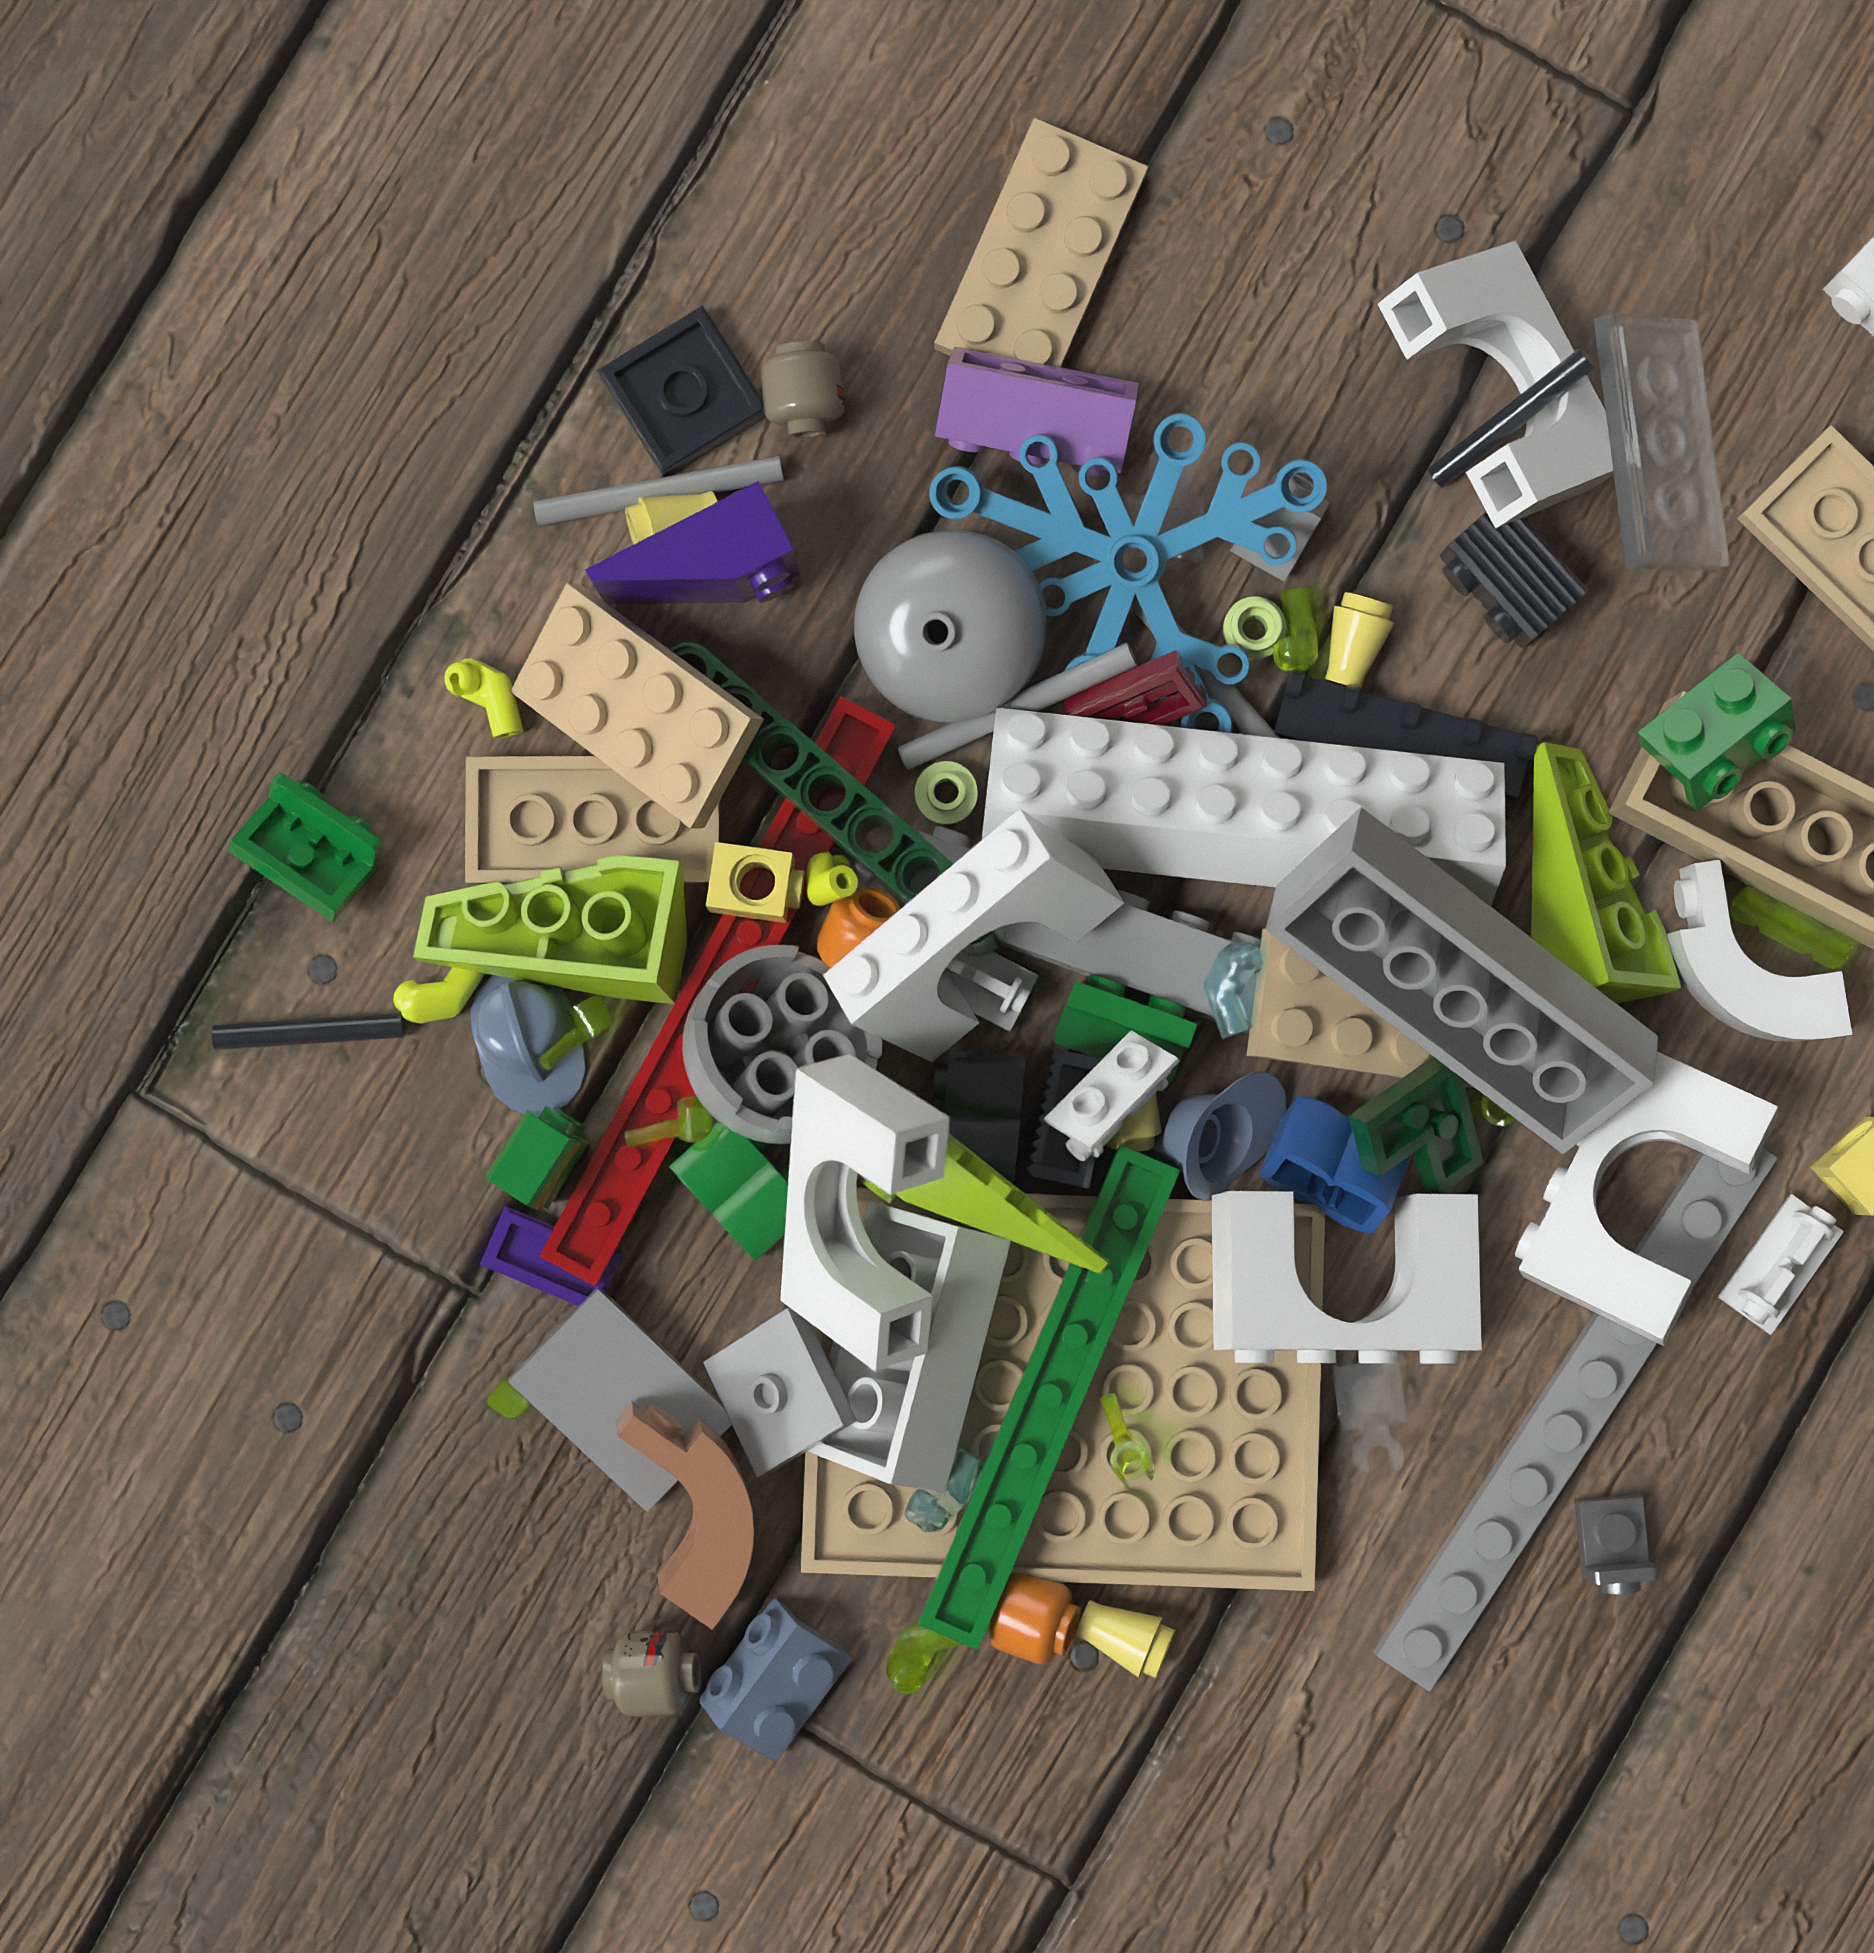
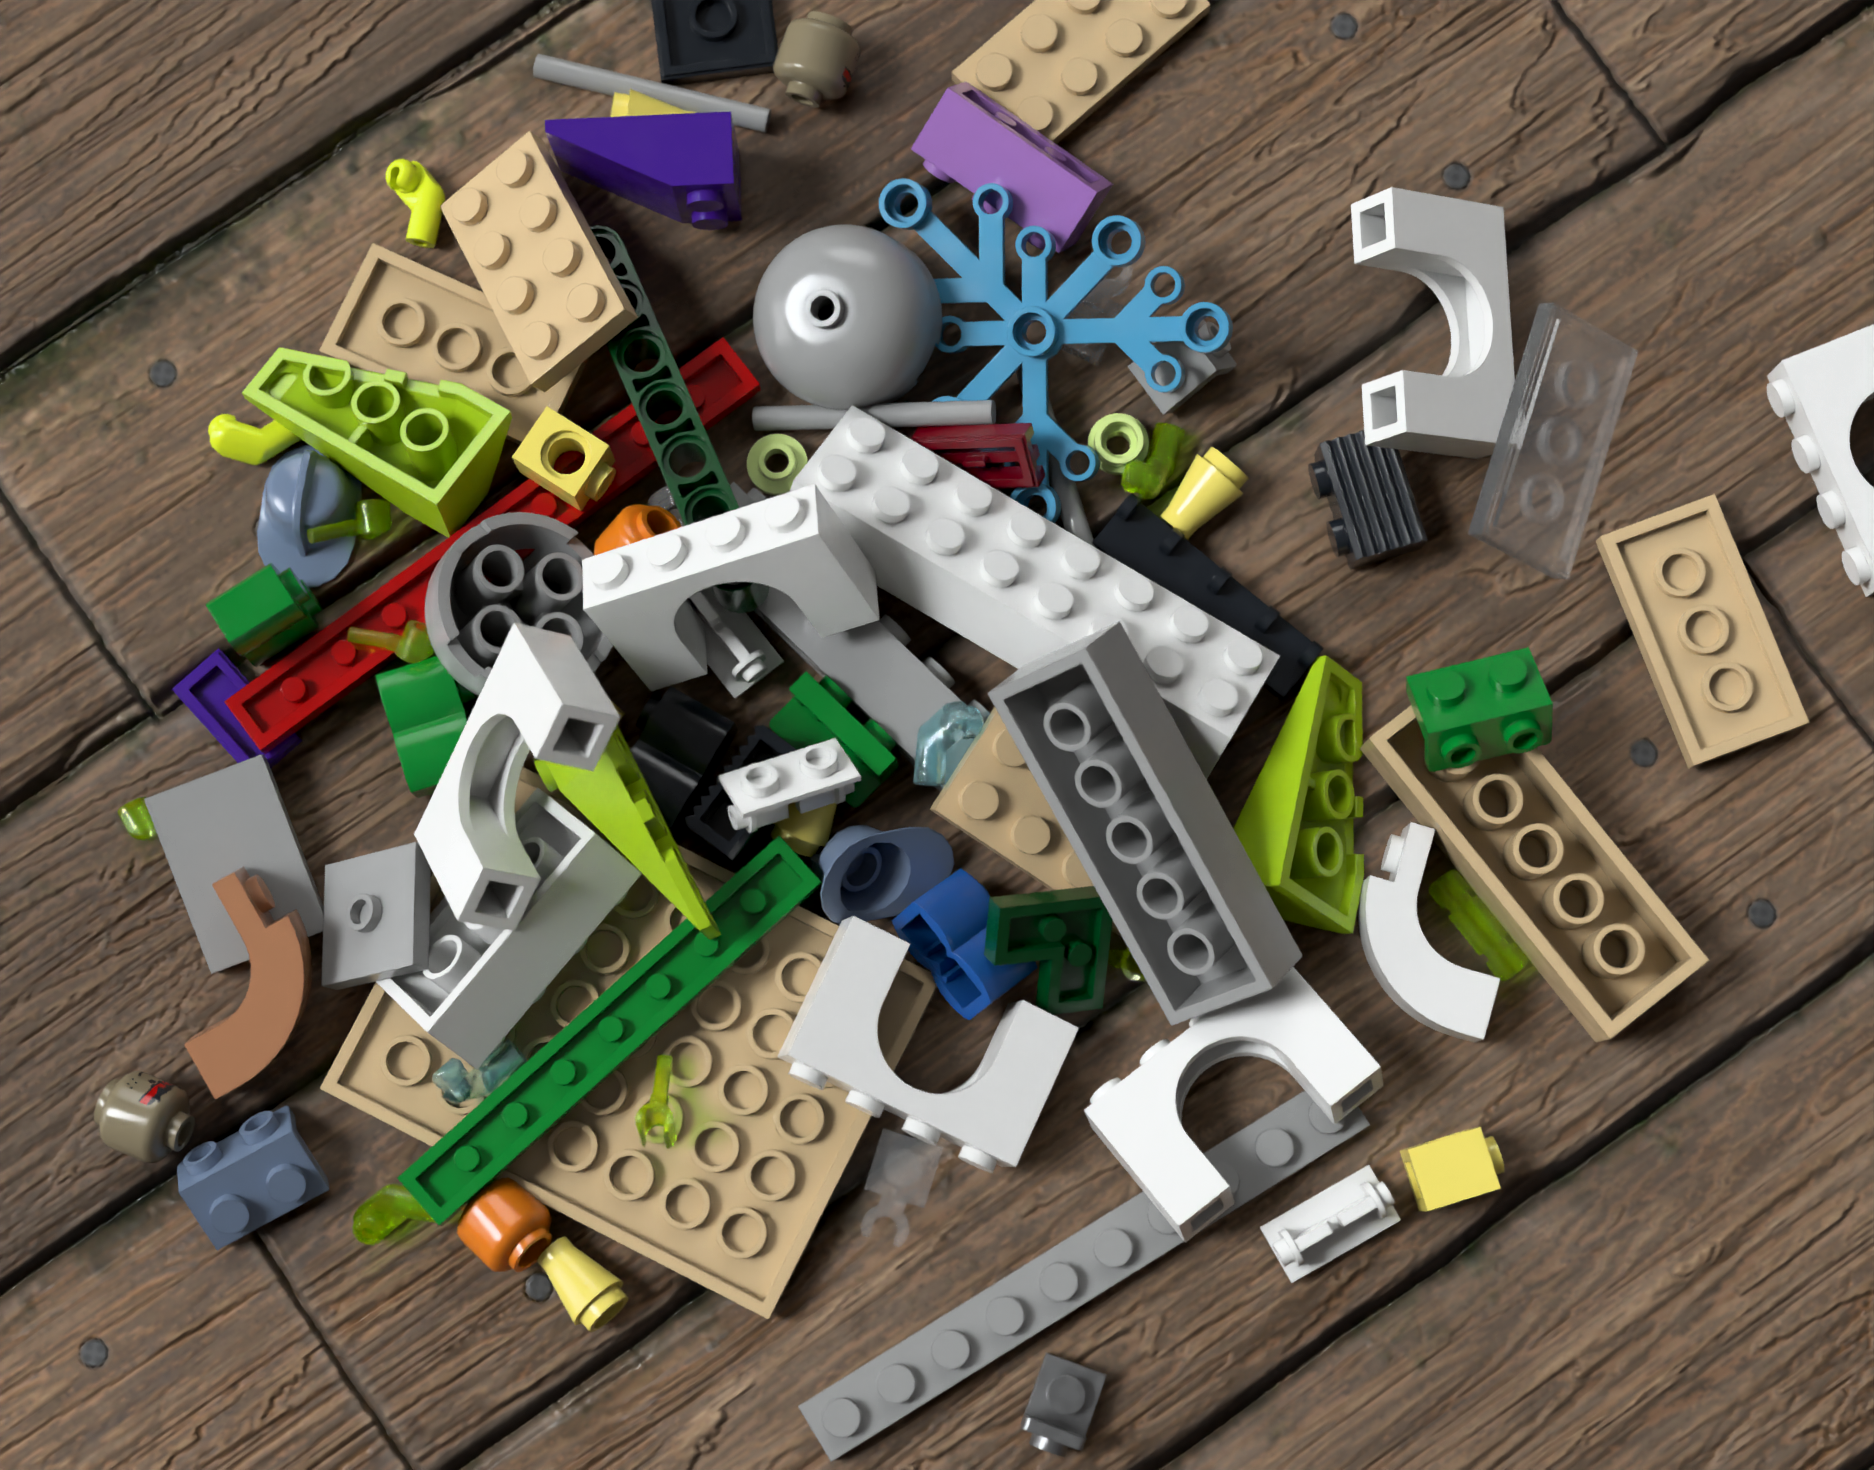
camera: 25 degrees right, 5 degrees down
(308, 847) = (199, 260): green bracket -> none
(308, 1031) = (123, 420): black bar -> none
(829, 878) = (633, 486): neon yellow arm -> none
(1511, 417) = (1432, 356): black bar -> none

